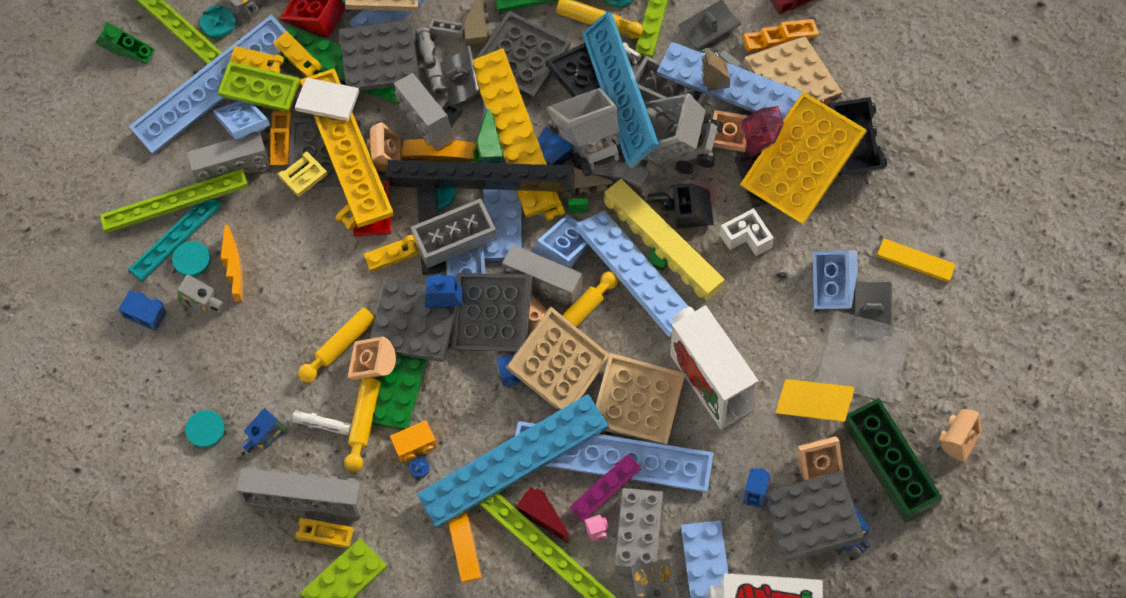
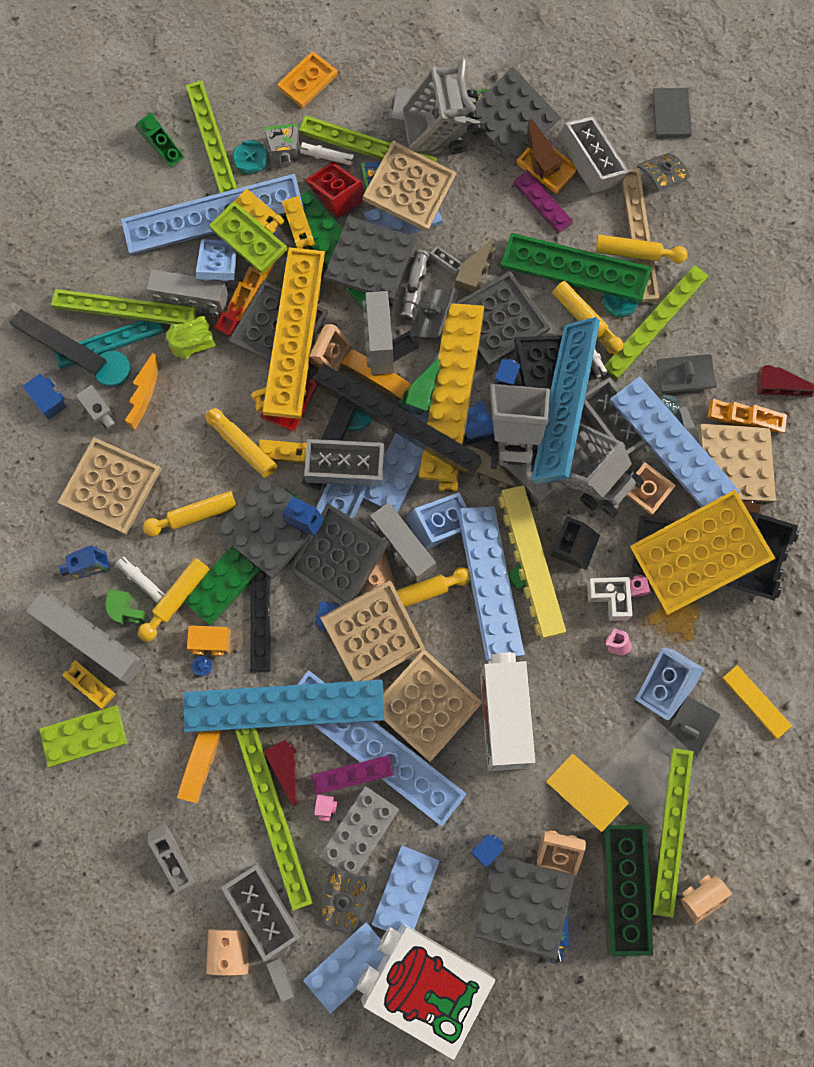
camera: 25 degrees right, 10 degrees up
(128, 258) = (58, 342): none -> black tile
(205, 429) = (40, 533): teal tile -> none
(247, 357) = (109, 486): none -> tan plate
(252, 196) = (189, 337): none -> lime piece
(277, 165) = (227, 321): none -> red plate
(304, 178) = (244, 343): light yellow plate -> none
(317, 457) = (119, 608): none -> bright green brick
(327, 99) = (301, 278): white tile -> none
(349, 263) = (241, 443): none -> yellow piece
(372, 358) = (210, 546): light nougat brick -> none
(451, 406) = (260, 624): none -> black tile
(555, 92) = (507, 372): none -> blue brick
(578, 205) = (472, 490): green tile -> none
(663, 198) = (553, 521): black arm -> none
(714, 71) = (661, 429): dark tan slope -> none
(762, 129) = (677, 506): clear pink slope -> none
(767, 214) = (640, 586): none -> bright pink plate
(774, 268) = (618, 643): none -> bright pink plate
(815, 227) = (678, 621): none -> clear yellow tile
(904, 394) = (672, 832): none -> lime plate

